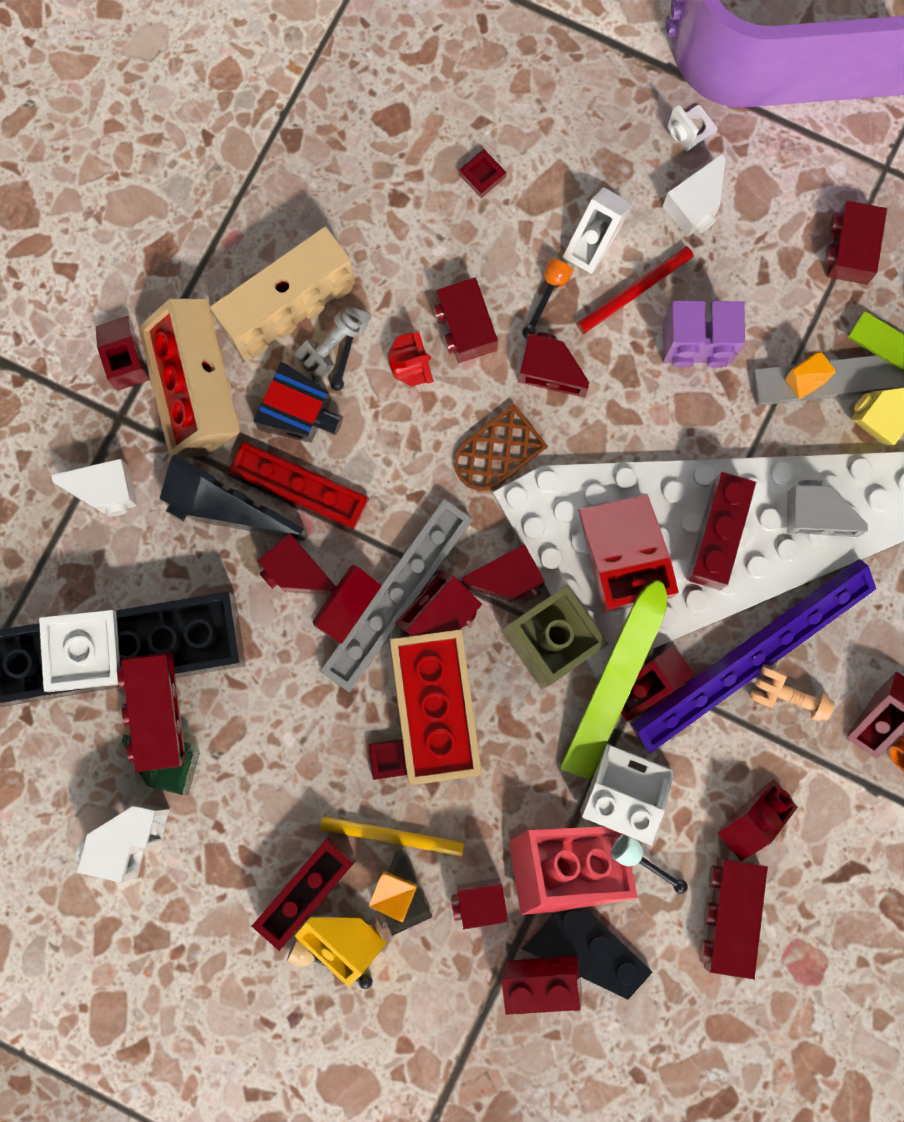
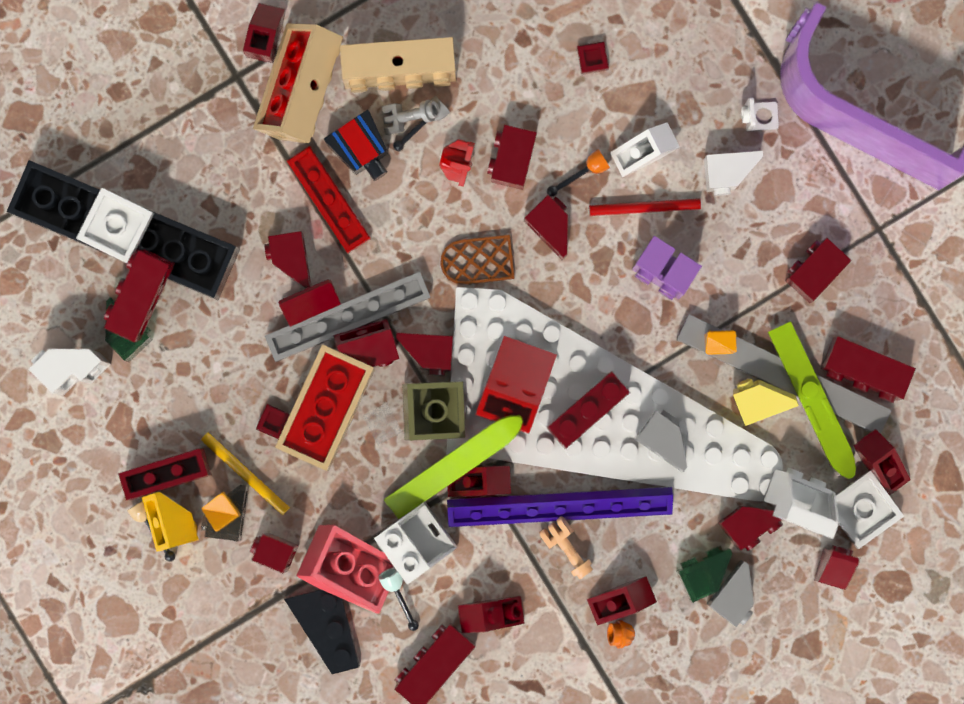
camera: 30 degrees right, 5 degrees up
(101, 486) = (195, 119): white slope -> none
(201, 497) = (258, 170): black wedge -> none
(542, 985) = (281, 629): dark red brick -> none

